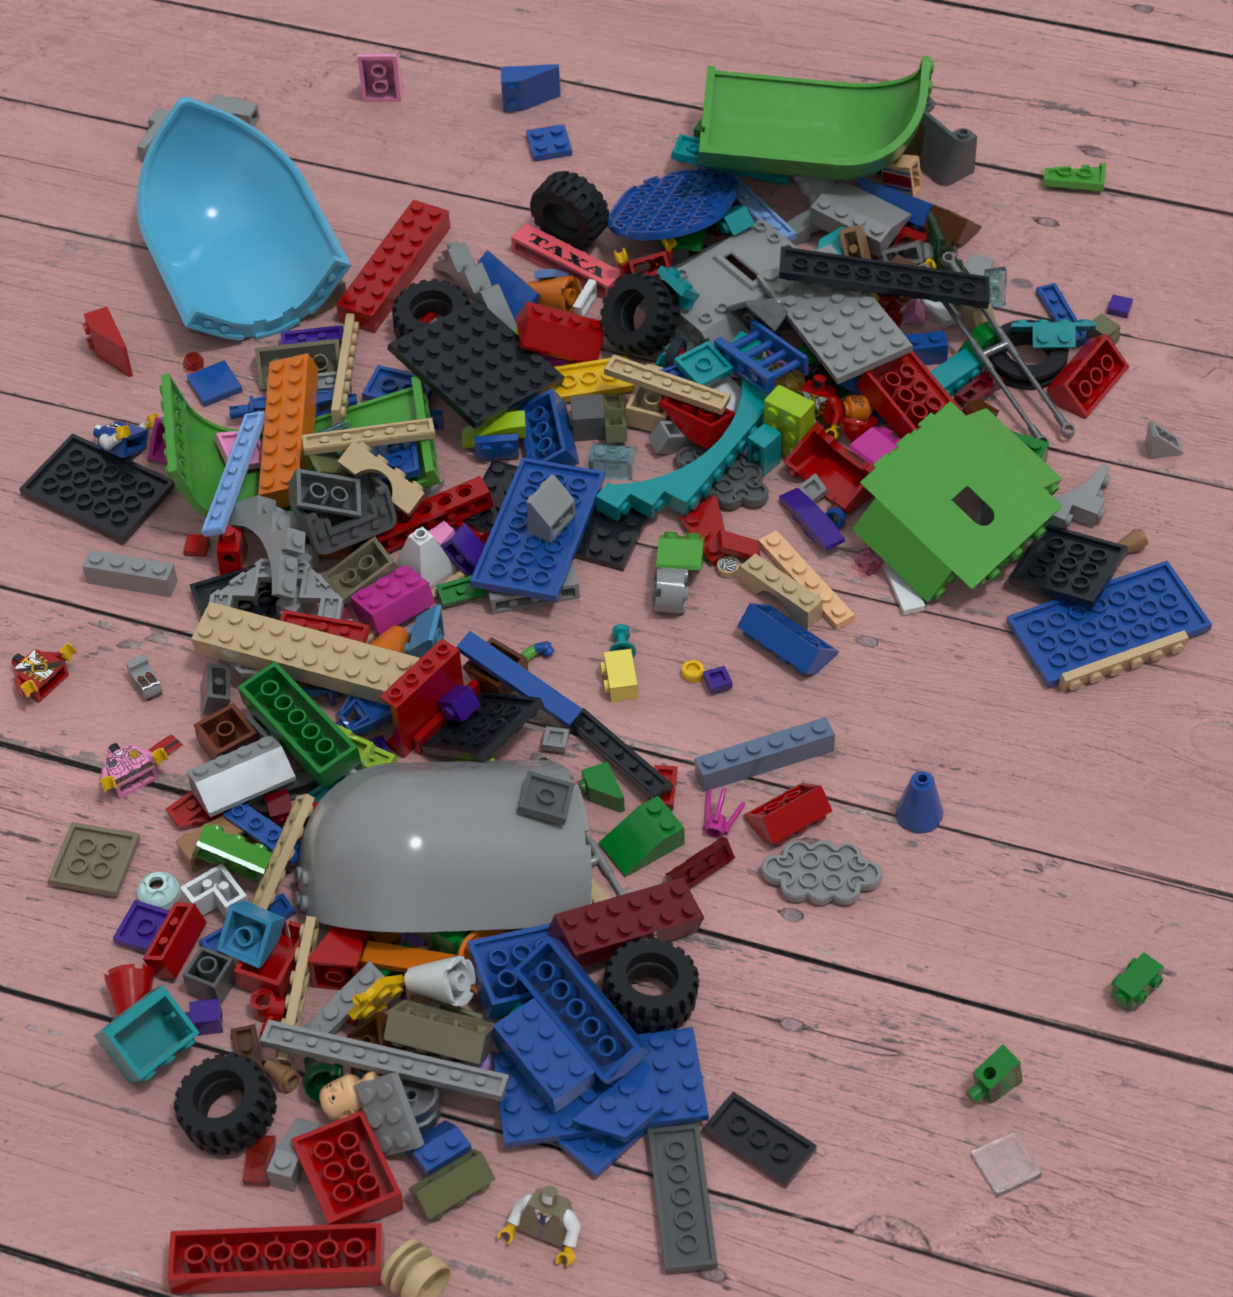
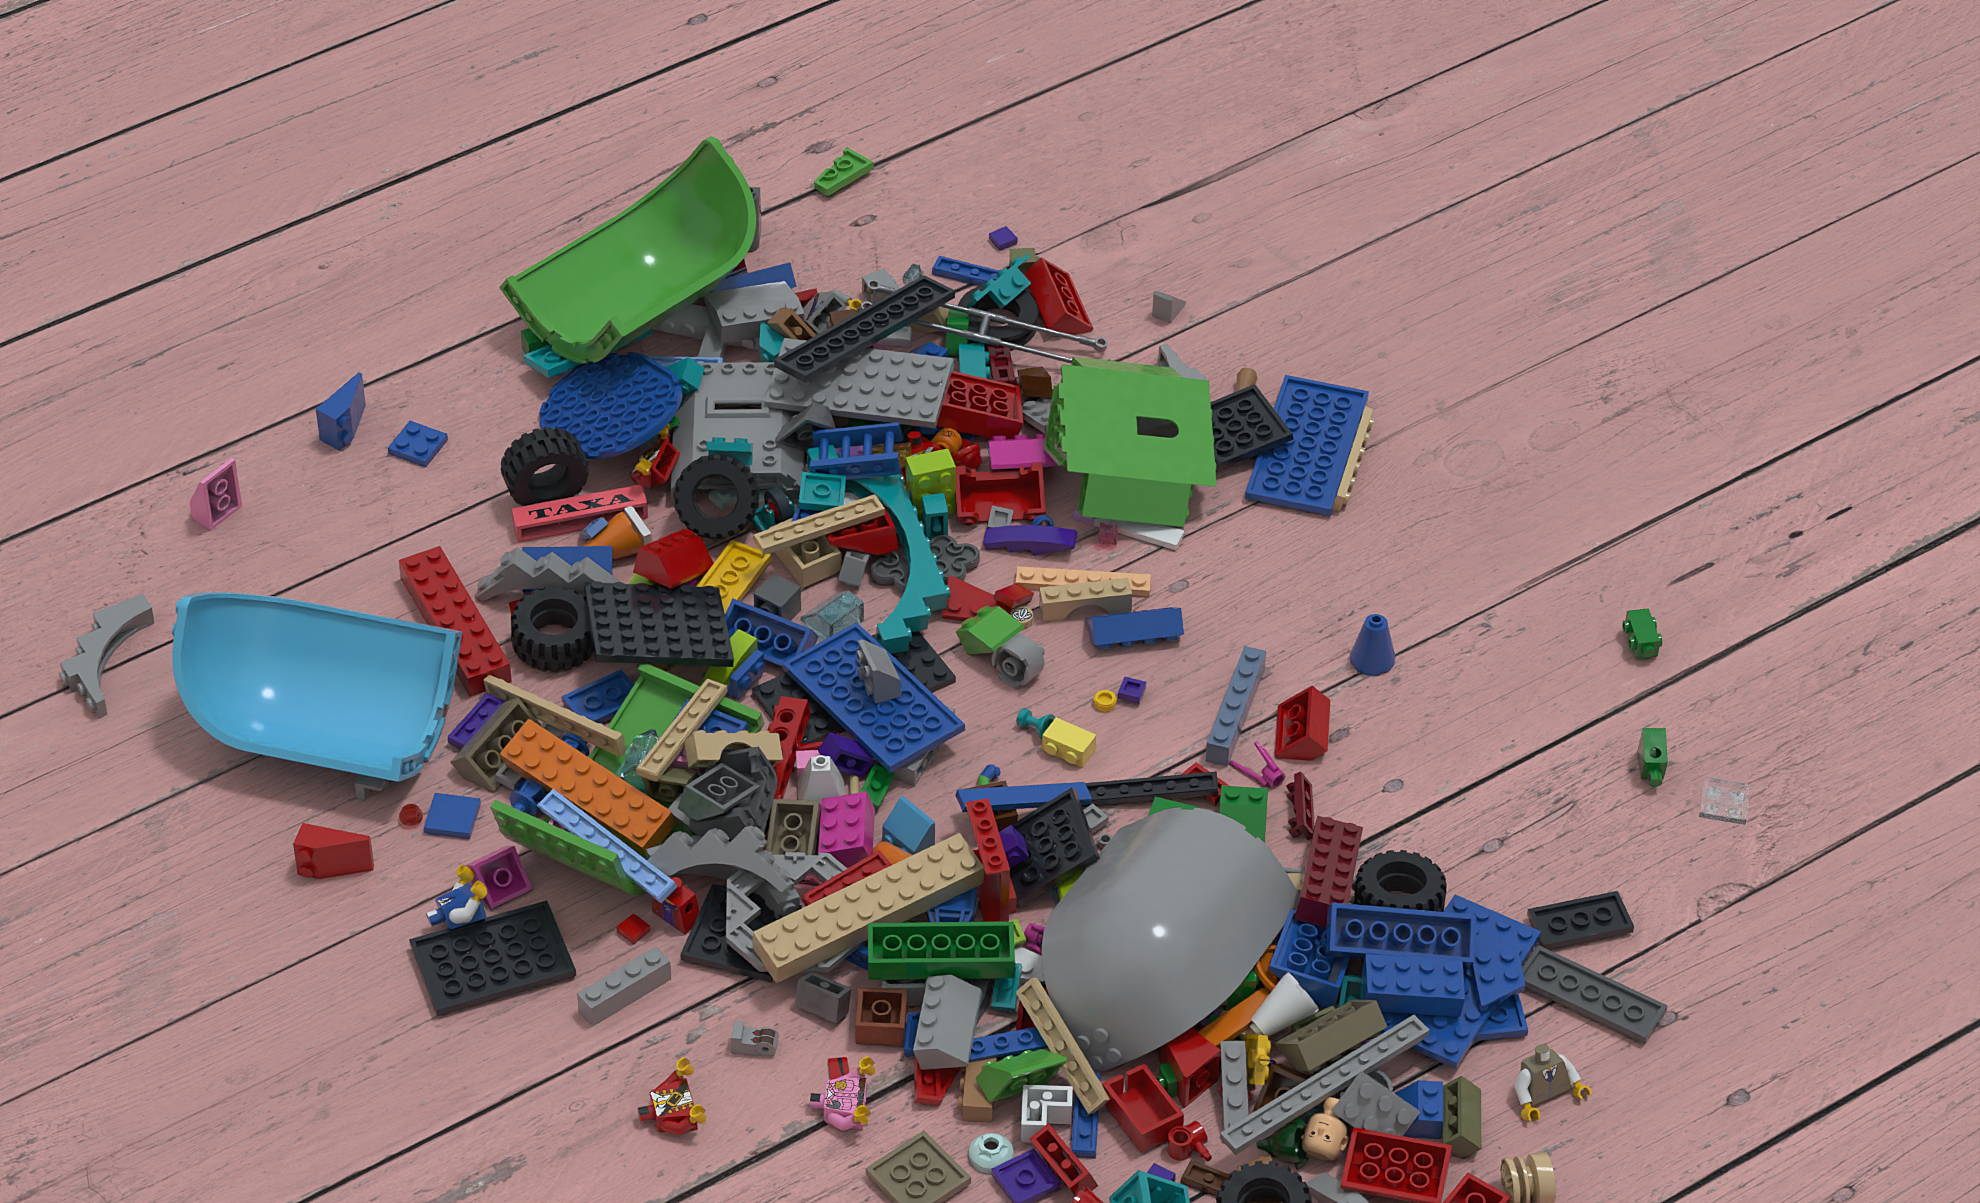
camera: 55 degrees left, 5 degrees down
(209, 975) = (1121, 1157): dark grey head -> none
(250, 933) = (1122, 1099): dark azure slope -> none
(278, 806) = (991, 1023): dark red brick -> none
(299, 980) = (1192, 1100): tan plate -> none
(546, 798) = (1204, 825): dark grey plate -> none
(615, 418) = (811, 590): olive slope -> none
(821, 872) = (1376, 743): light grey plate -> none
(940, 242) = (842, 279): slope -> none
(956, 226) = (814, 271): reddish brown slope -> none

